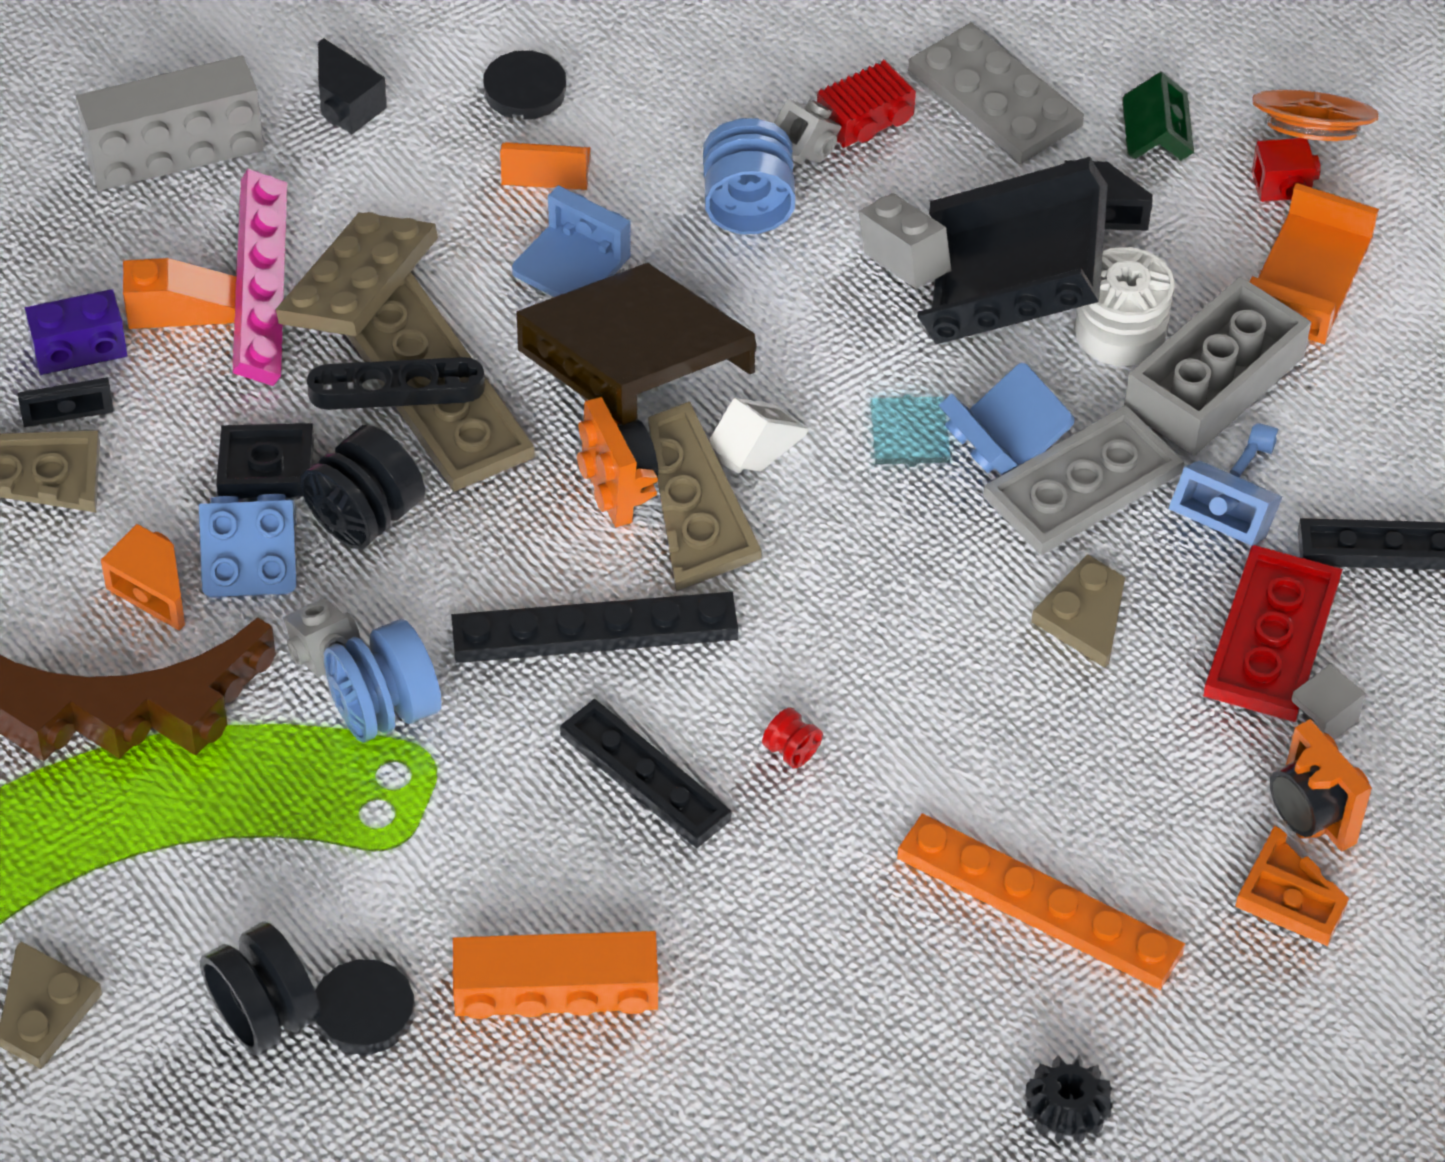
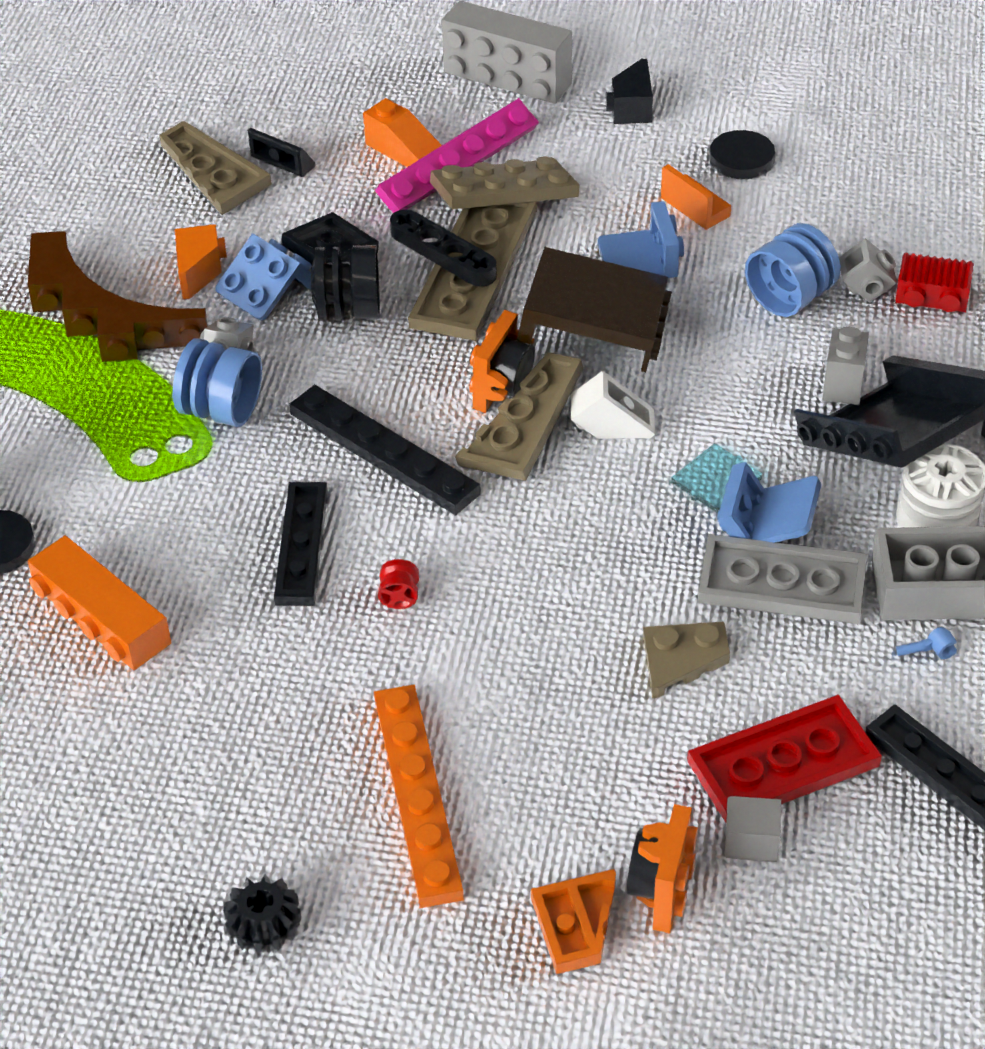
camera: 50 degrees right, 5 degrees down
(76, 332) = (326, 122): dark purple brick -> none
(1225, 502) = (851, 655): medium blue brick -> none

